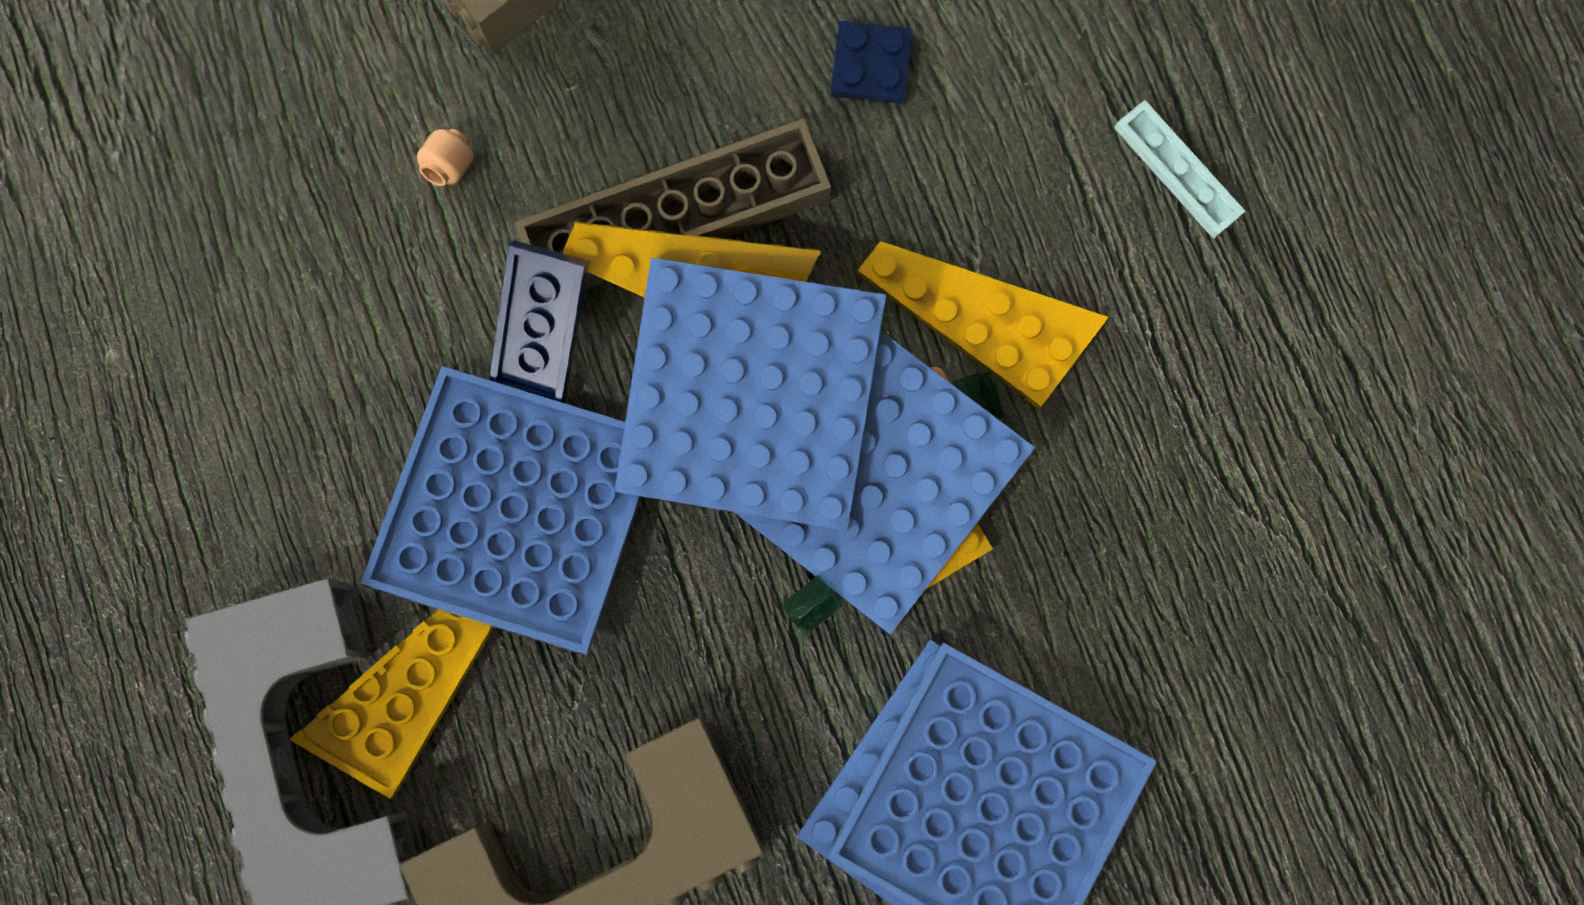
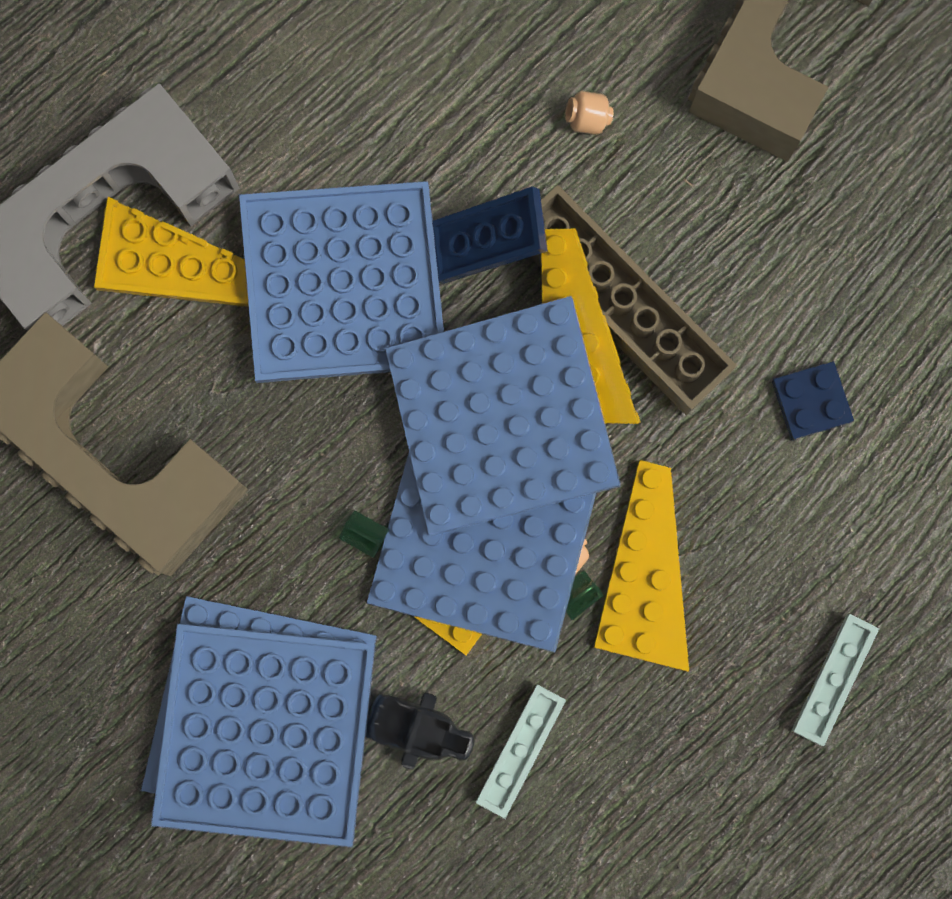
camera: 65 degrees right, 0 degrees up
(1054, 636) = (417, 730): none -> black piece
(1122, 533) = (520, 751): none -> light aqua plate

